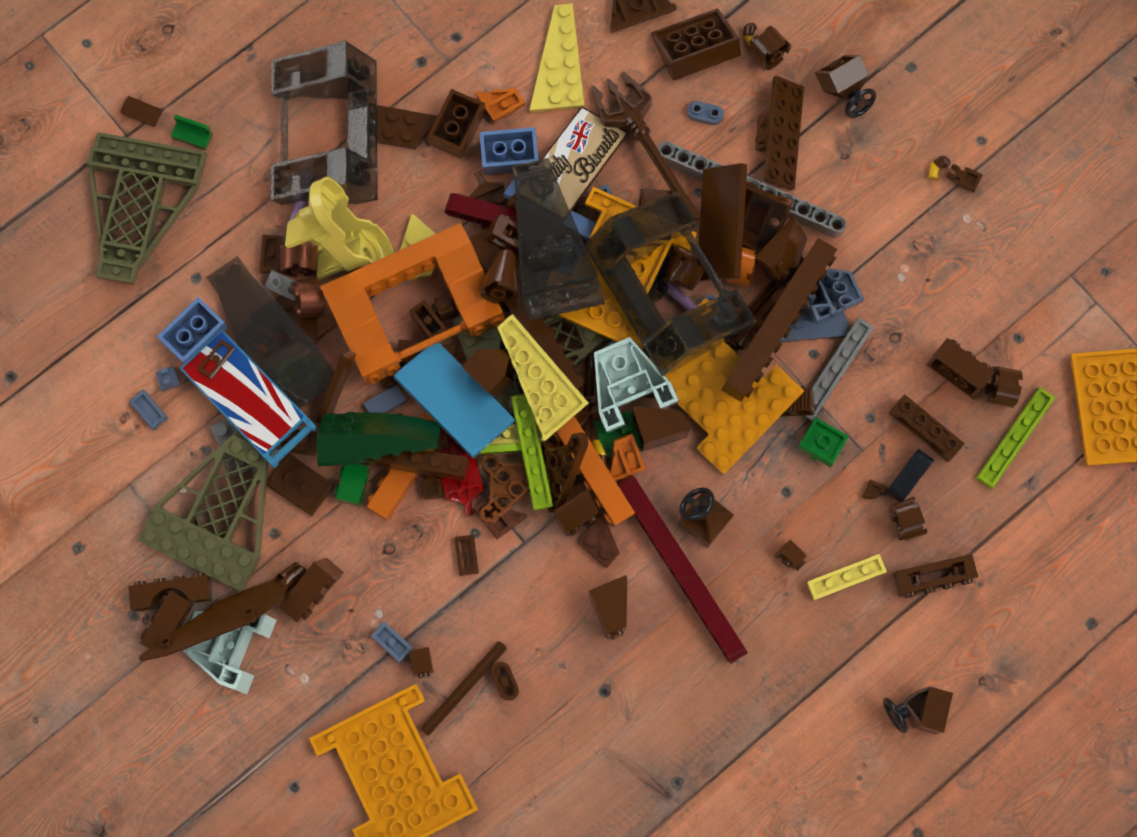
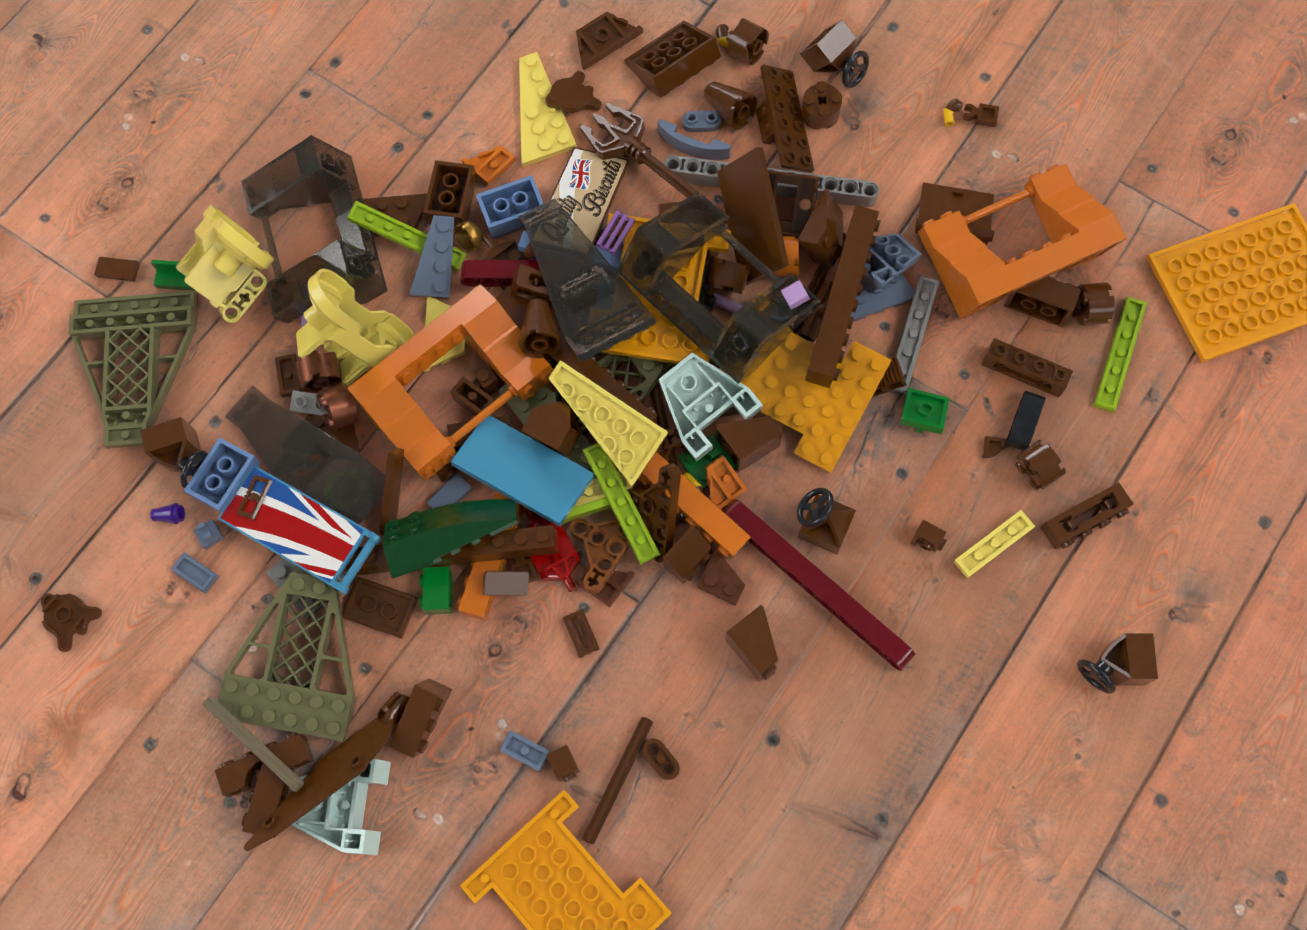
camera: 10 degrees left, 5 degrees down
(31, 417) = (66, 616): none -> reddish brown tile
(140, 352) = (170, 514): none -> dark purple cone
(157, 296) = (174, 447): none -> reddish brown piece
(166, 572) = (253, 744): none -> dark tan axle
(240, 137) = (224, 264): none -> light yellow piece
(407, 153) = (396, 231): none -> lime tile
(413, 495) = (505, 583): none -> reddish brown slope
(426, 187) = (435, 264): none -> sand blue wing
(463, 167) = (468, 235): none -> pearl gold hair
(593, 55) = (572, 95): none -> reddish brown tile
(604, 195) = (623, 218): none -> medium lavender tile
(707, 146) = (715, 151): none -> sand blue slope
(734, 311) = (795, 294): none -> lavender tile
(736, 105) = (731, 103): none -> reddish brown cone
(827, 129) = (821, 105): none -> reddish brown brick
(909, 266) = (940, 199): none -> reddish brown door
(1010, 304) = (978, 278): none -> orange brick

